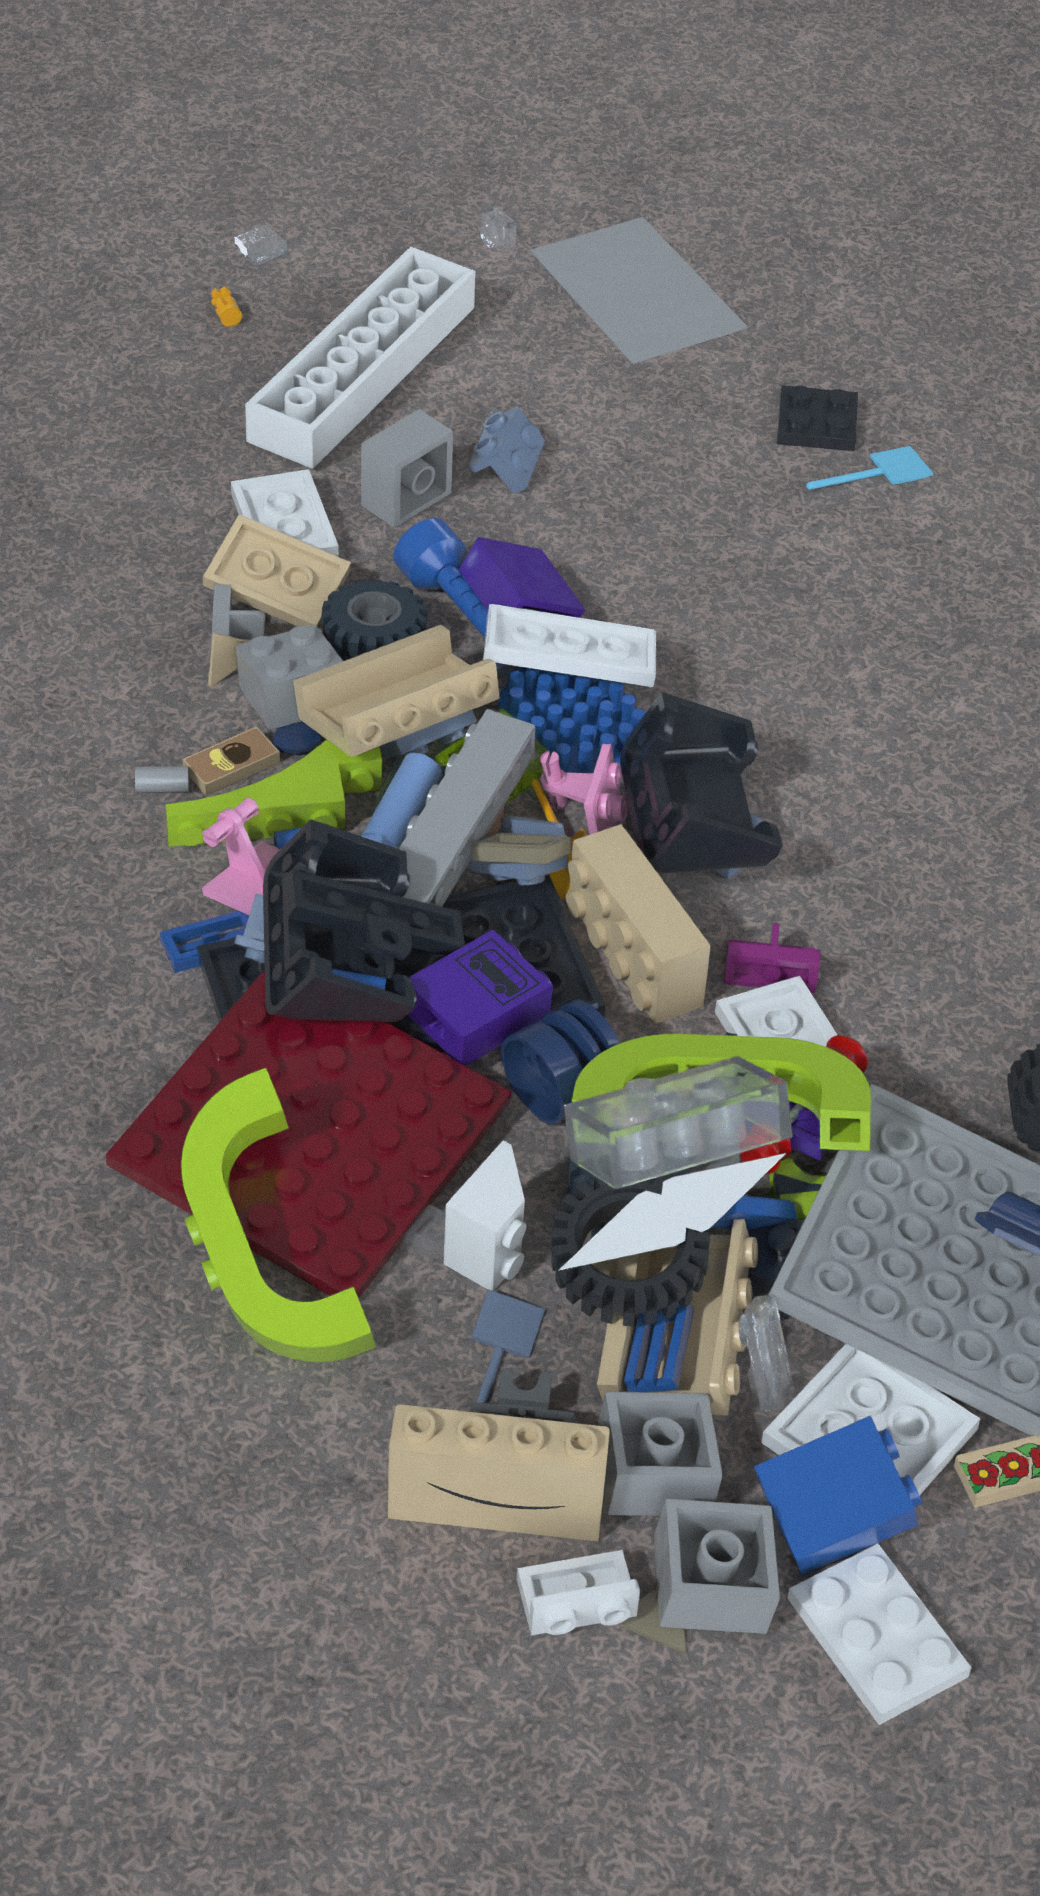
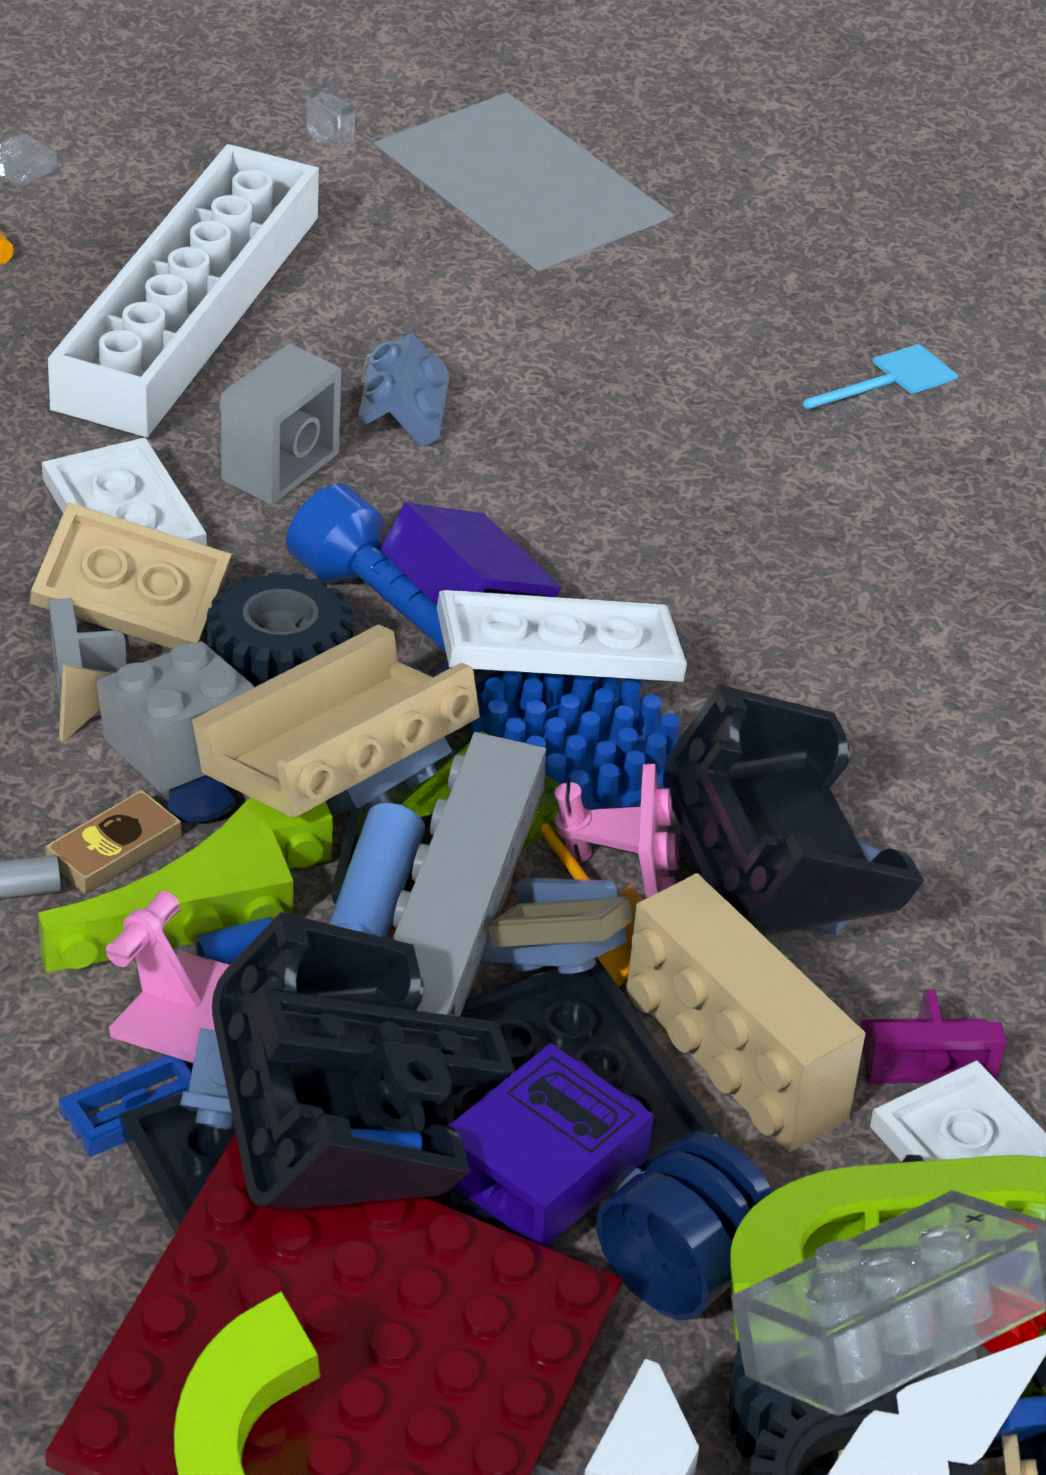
camera: 10 degrees left, 5 degrees down
(817, 418) = (794, 319): black plate -> none

